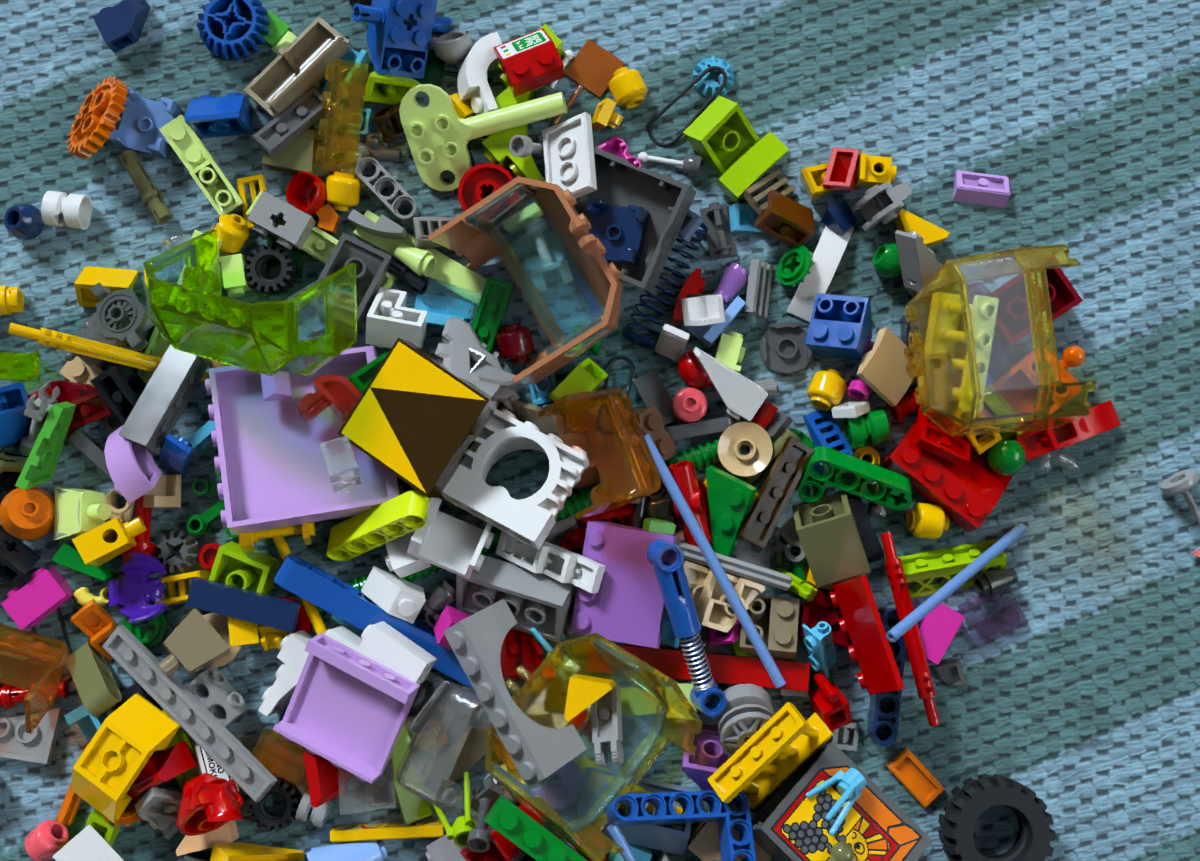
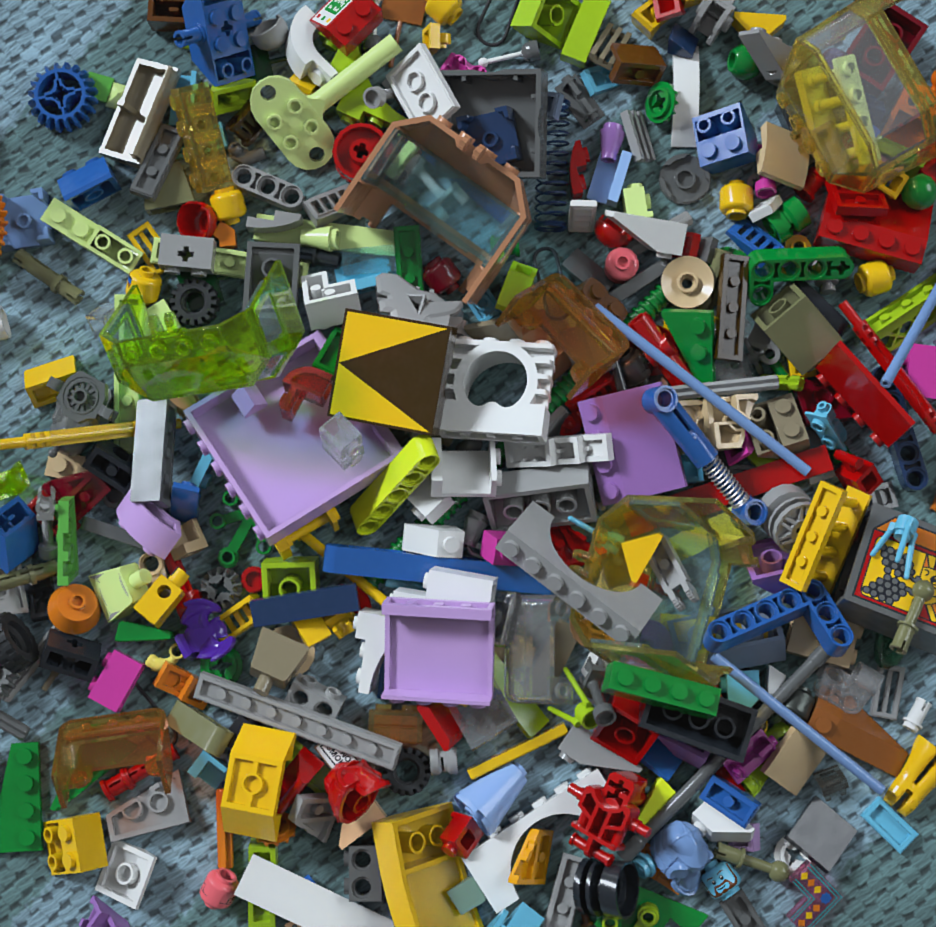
camera: 15 degrees left, 0 degrees up
(658, 526) = (641, 380): bright green tile -> none
(703, 310) = (597, 175): white panel -> none

